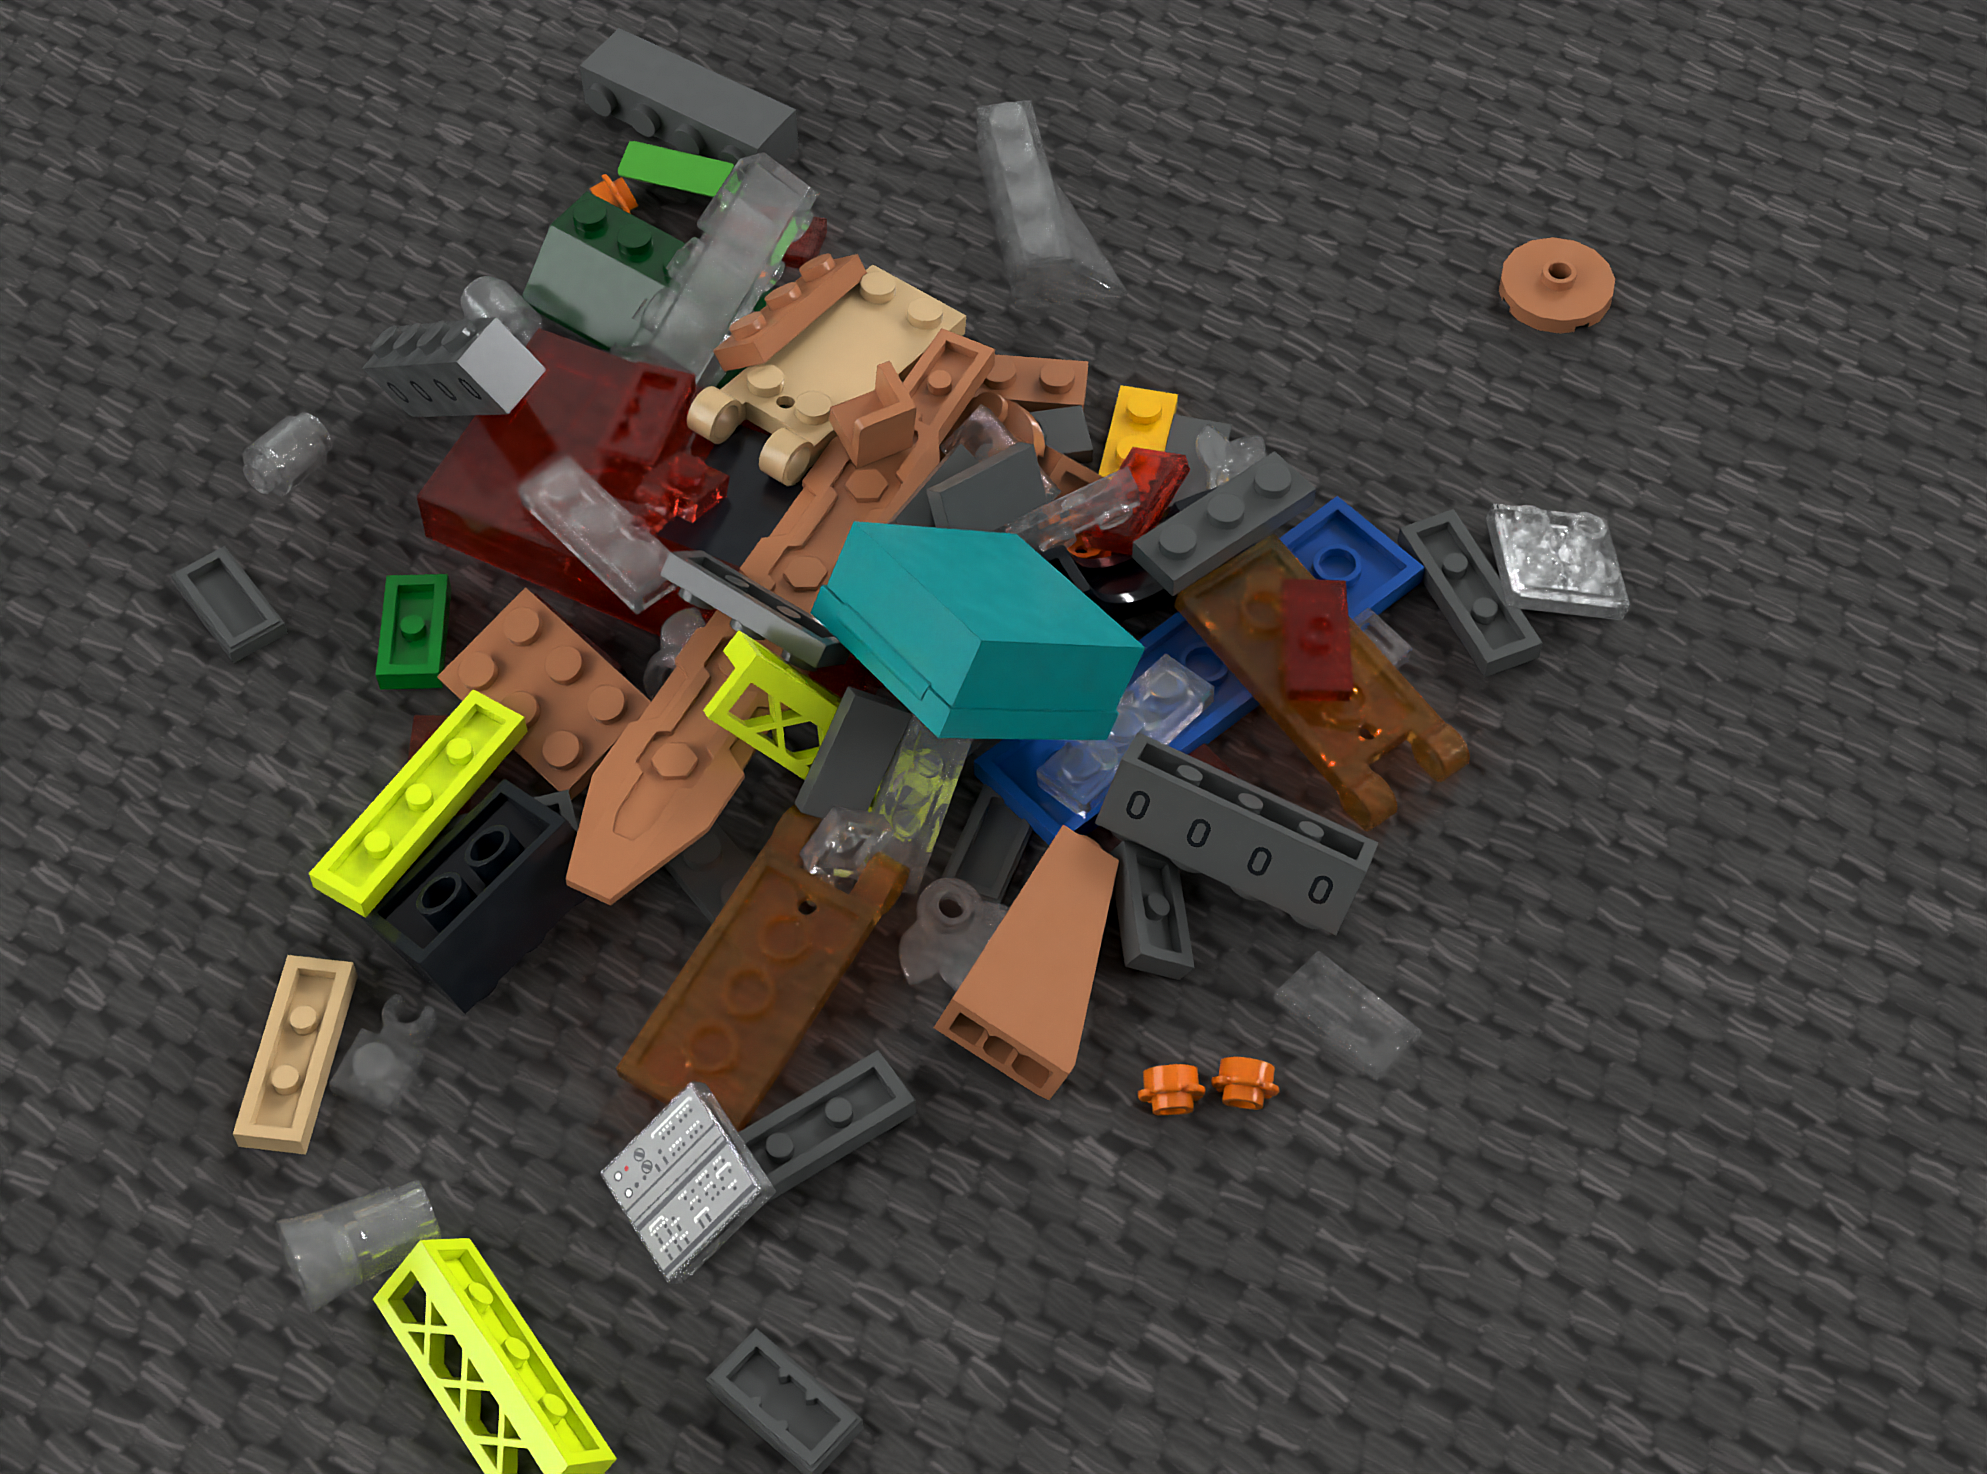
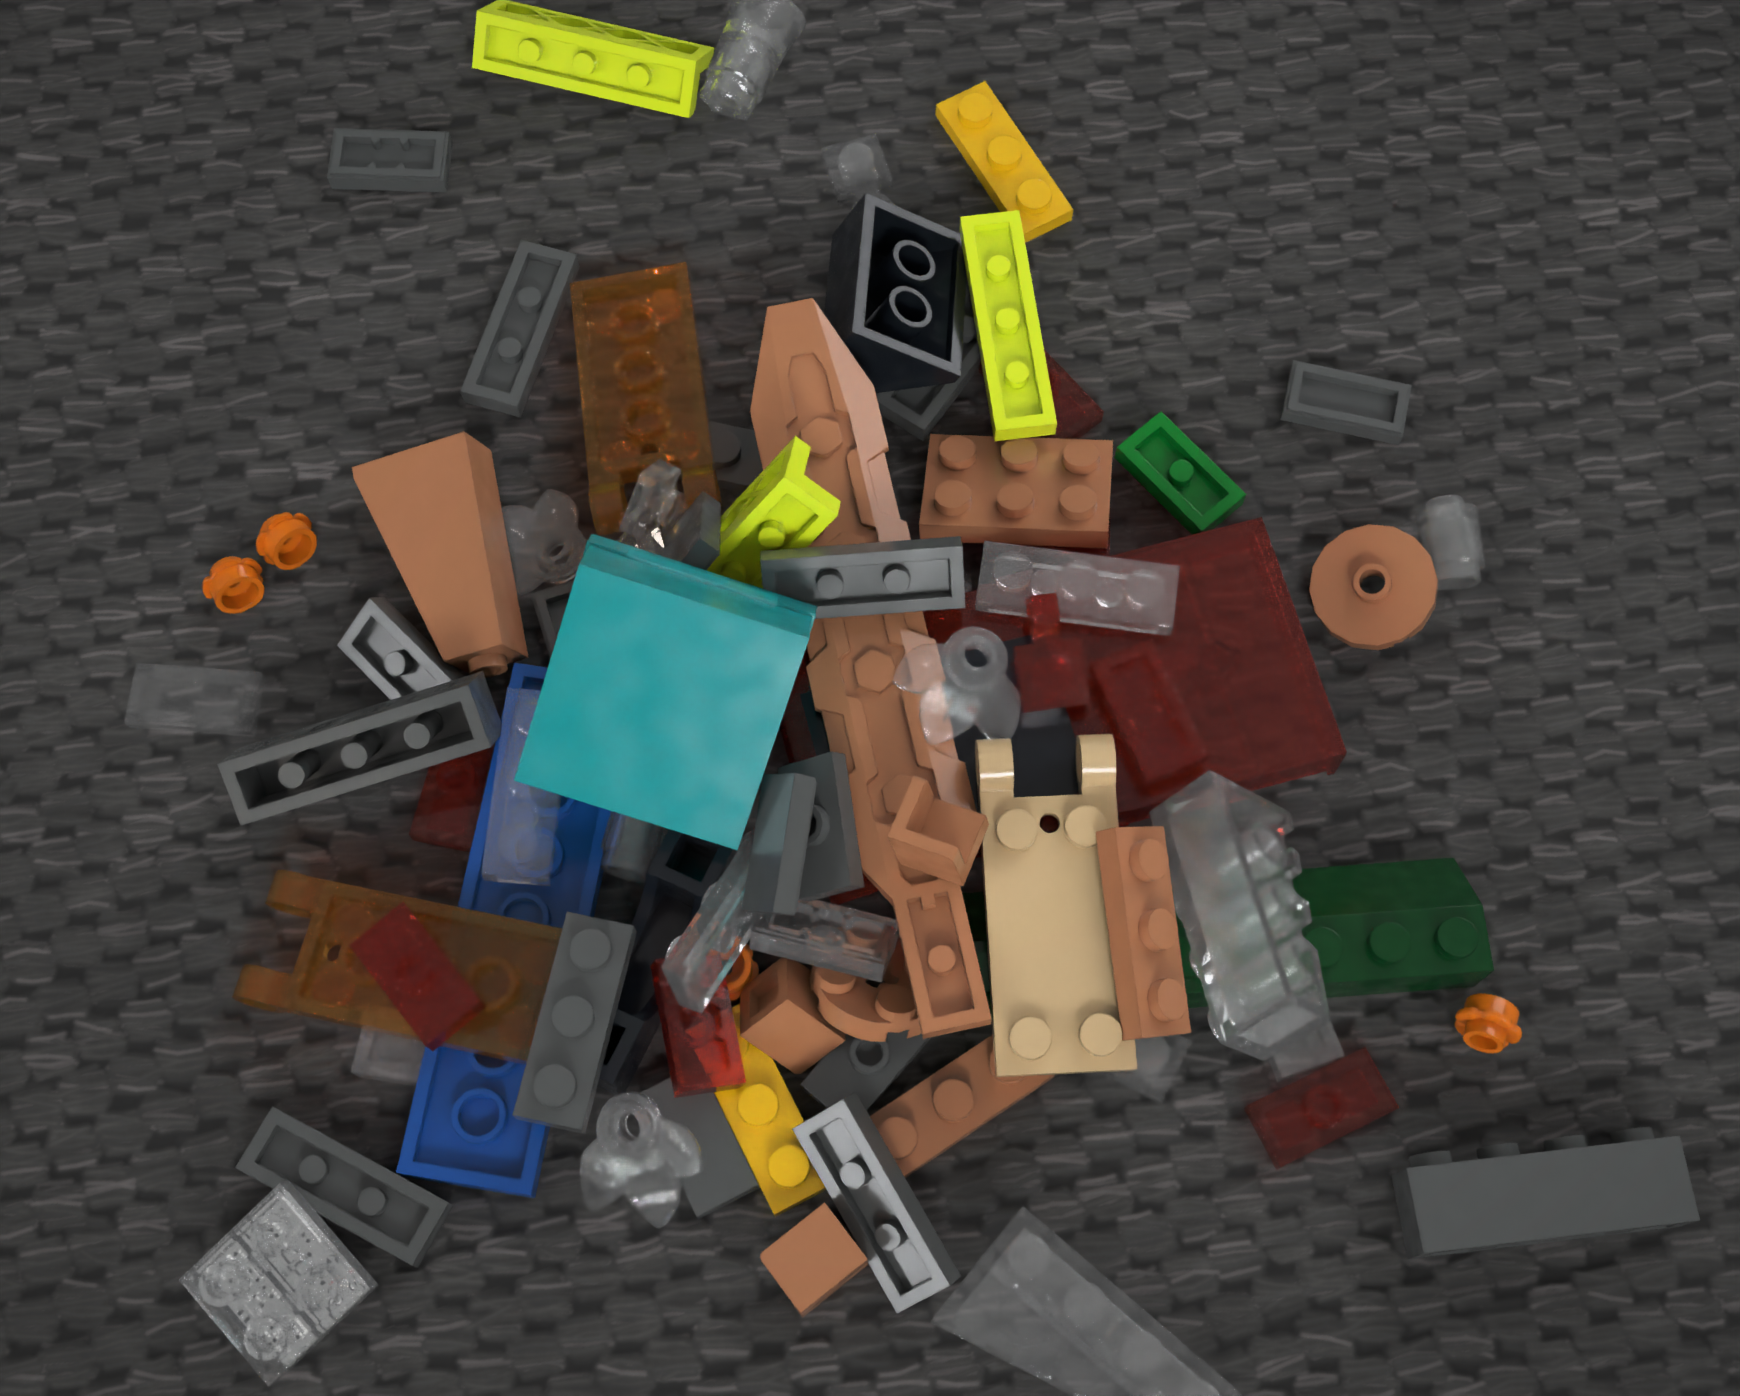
camera: 140 degrees right, 15 degrees up
(246, 984) = (1003, 160): none -> yellow plate
(295, 1055) = (918, 136): tan plate -> none
(370, 485) = (1382, 617): none -> nougat plate
(453, 367) = (1365, 648): dark grey brick -> none
(499, 299) = (1438, 810): clear brick -> none
(673, 168) = (1454, 1092): bright green slope -> none
(687, 1182) = (561, 223): tile -> none
(755, 520) = (958, 693): none -> clear plate
(1104, 348) = (876, 1203): none -> dark grey plate
(1171, 338) = (813, 1259): none -> nougat panel

